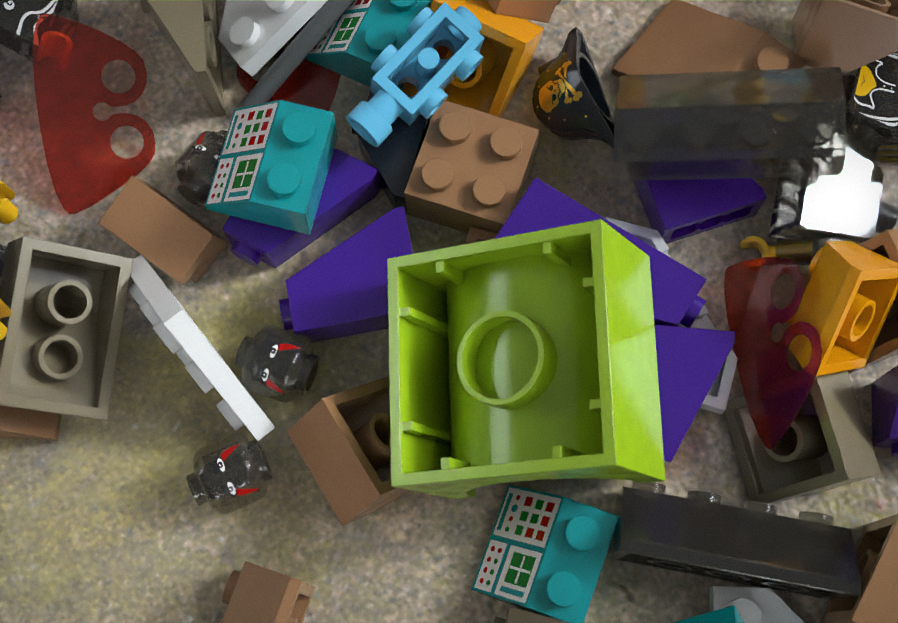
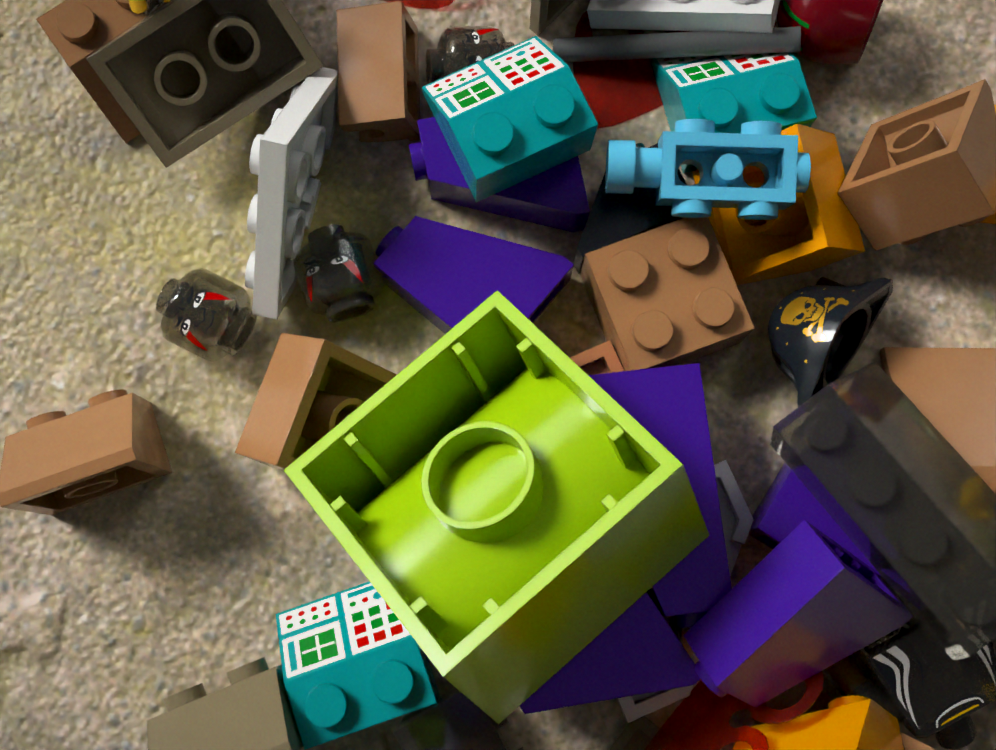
camera: 45 degrees right, 5 degrees up
(740, 249) = (792, 618): none -> dark purple slope

